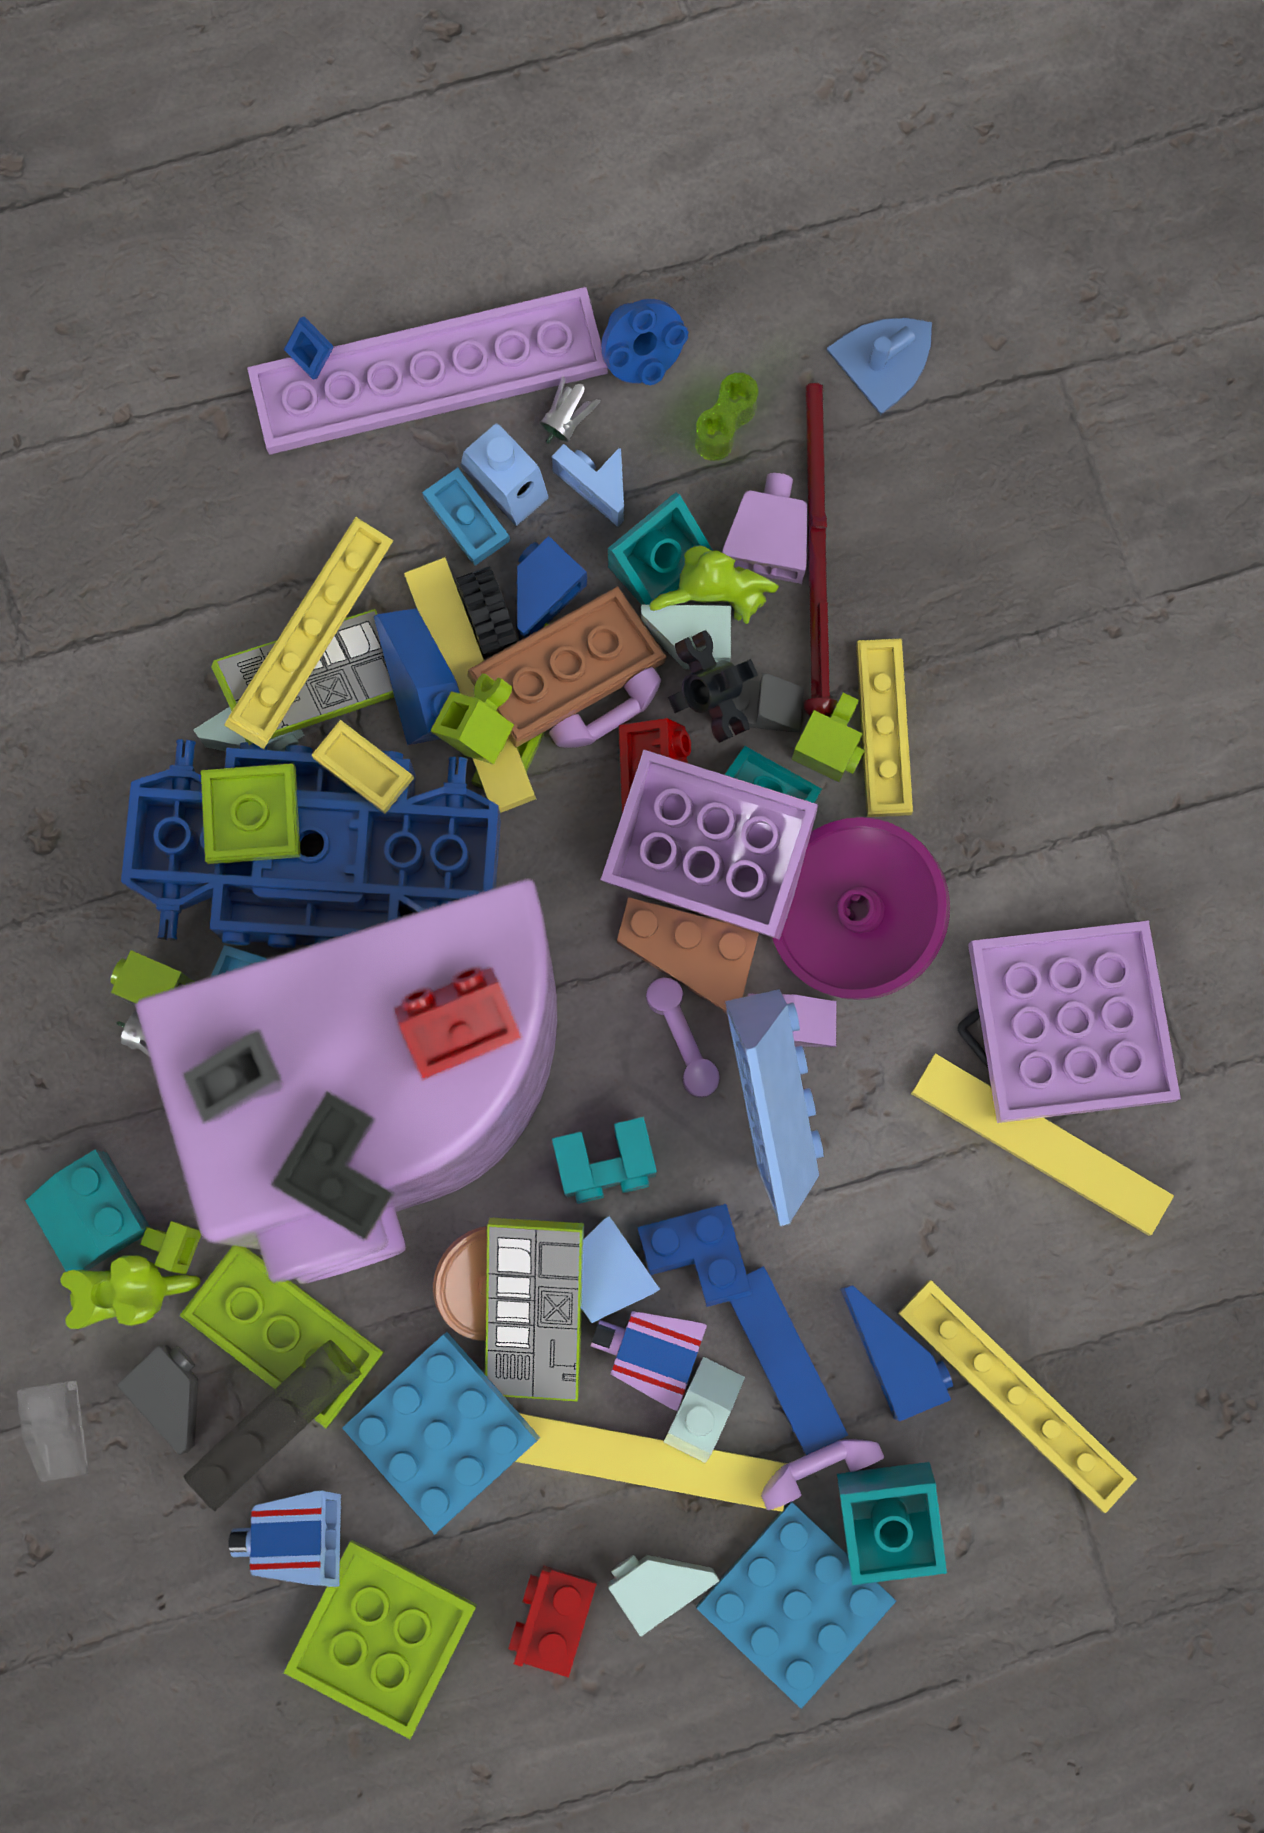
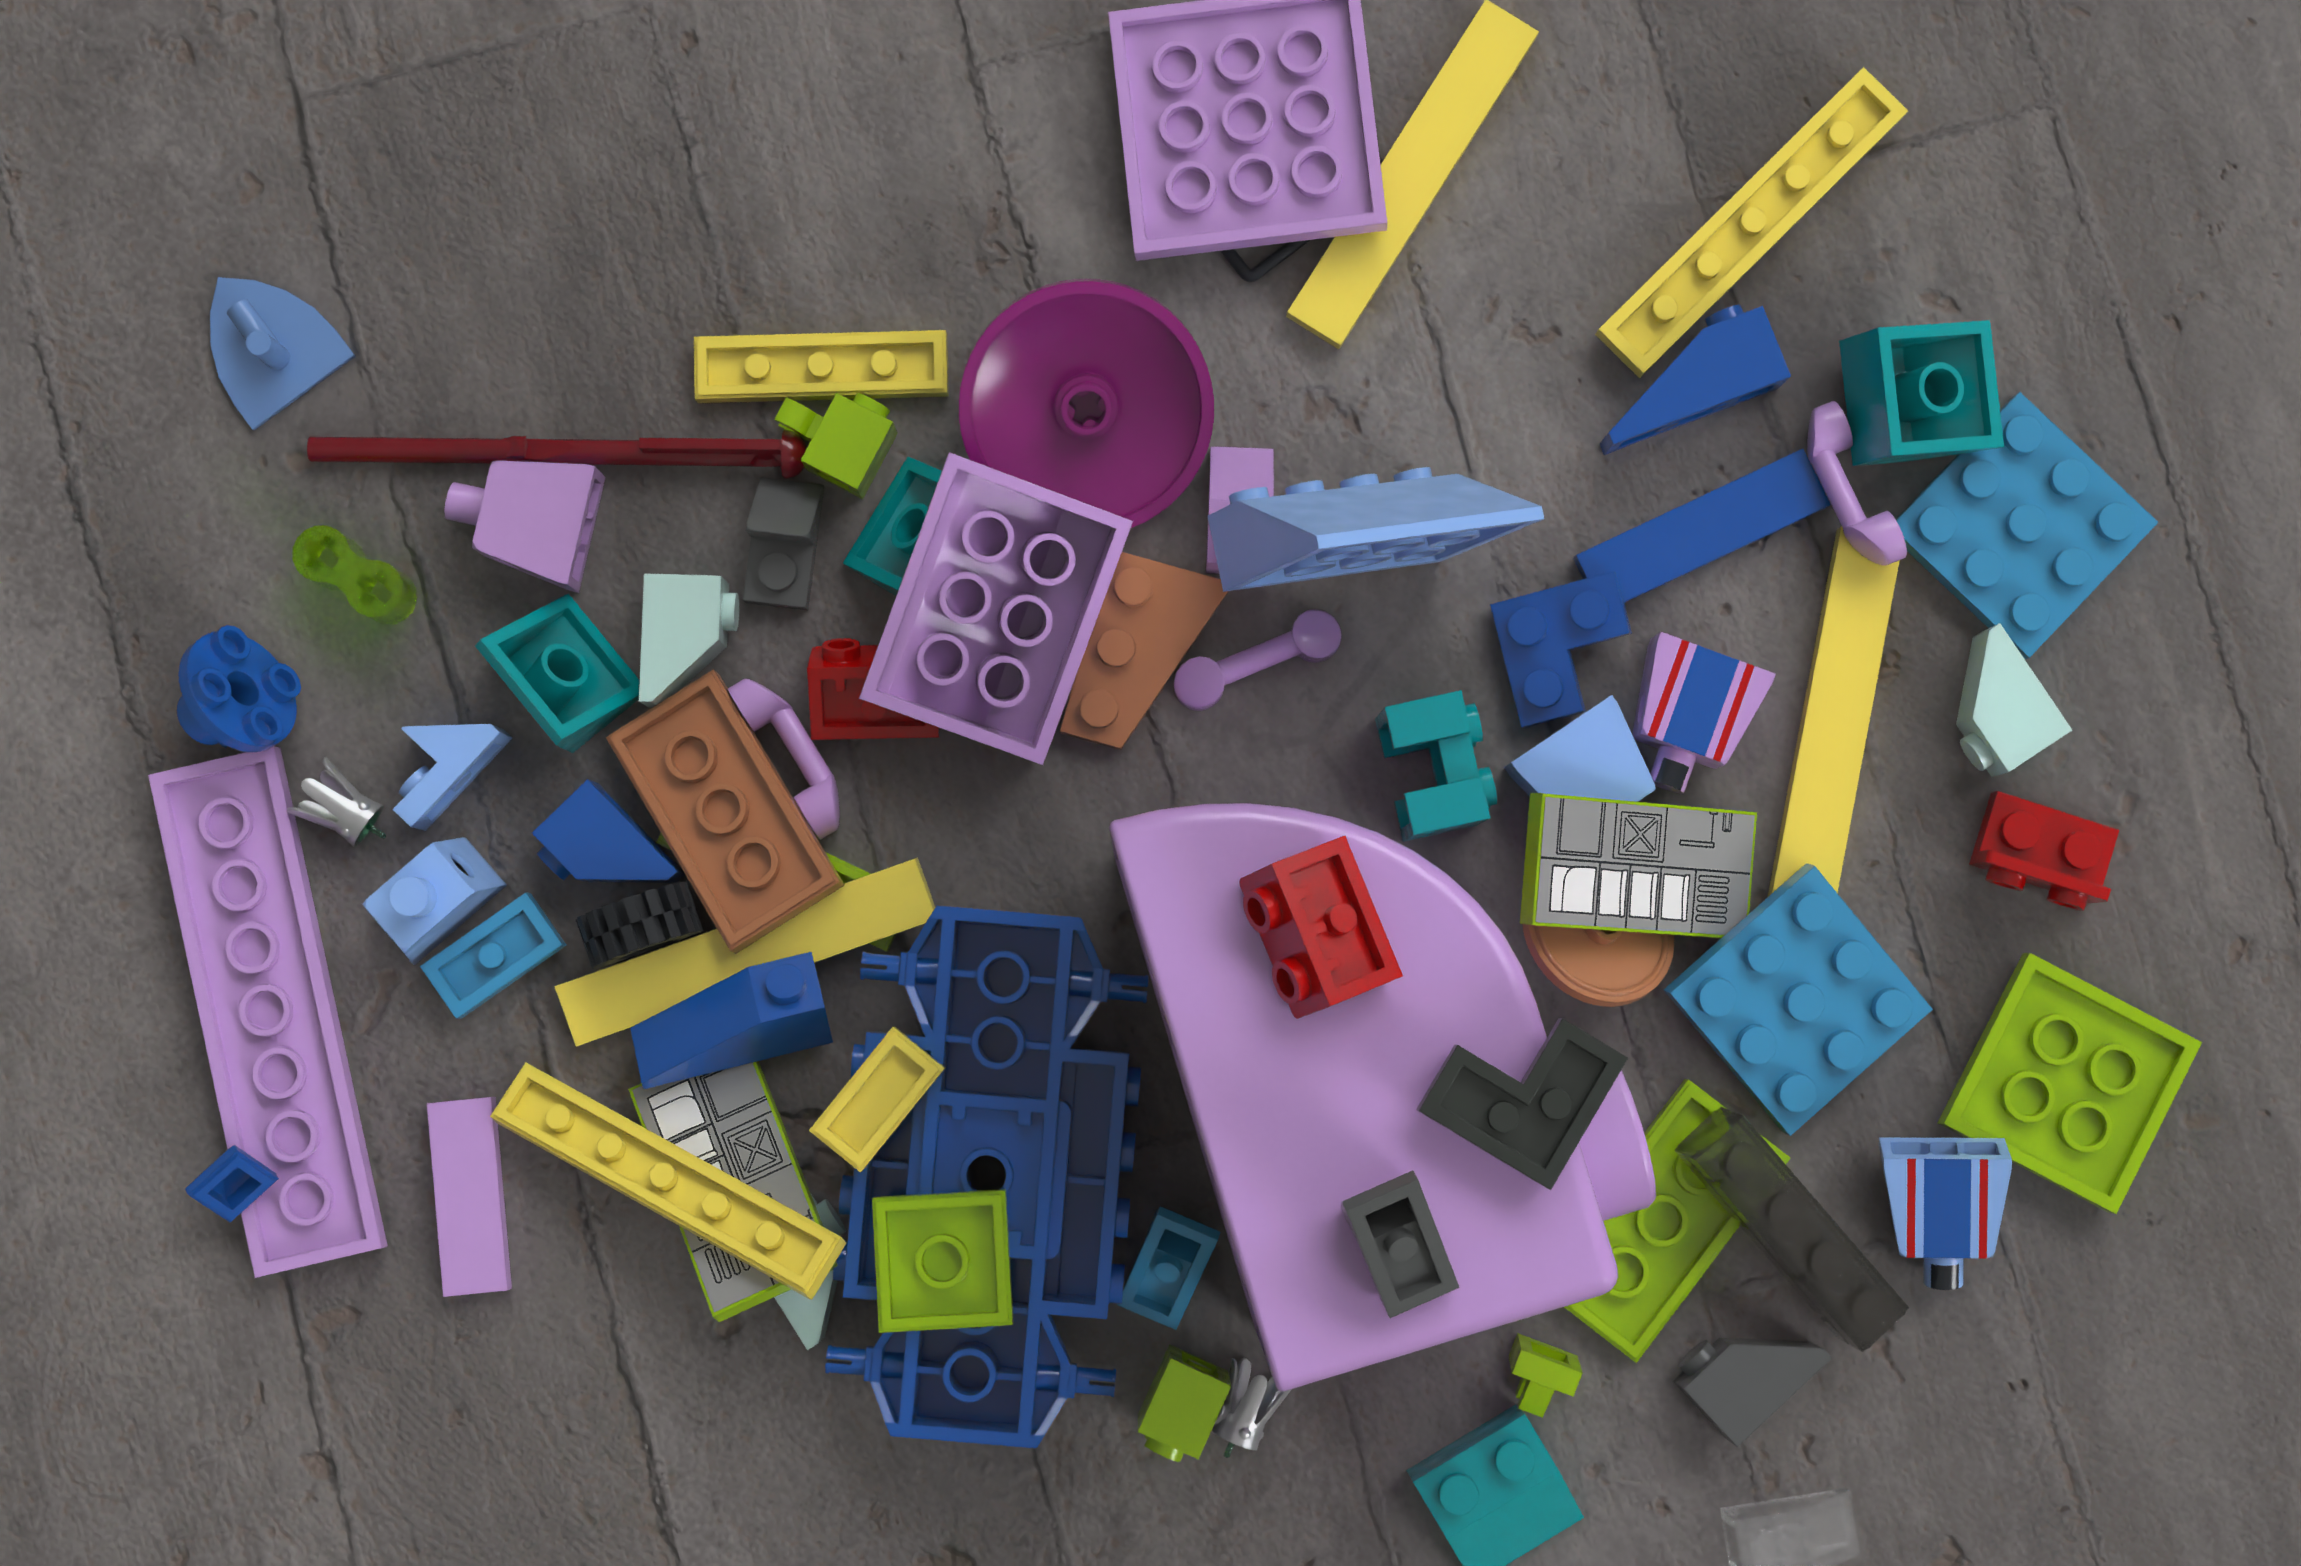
camera: 90 degrees left, 5 degrees up
(128, 1291) = (1608, 1432): lime animal -> none
(301, 506) = (469, 1197): none -> lavender tile
(473, 723) = (813, 940): lime brick -> none
(704, 1410) = (1771, 637): light aqua slope -> none
(712, 686) = (763, 601): black pin -> none
(713, 578) = (603, 593): lime animal -> none

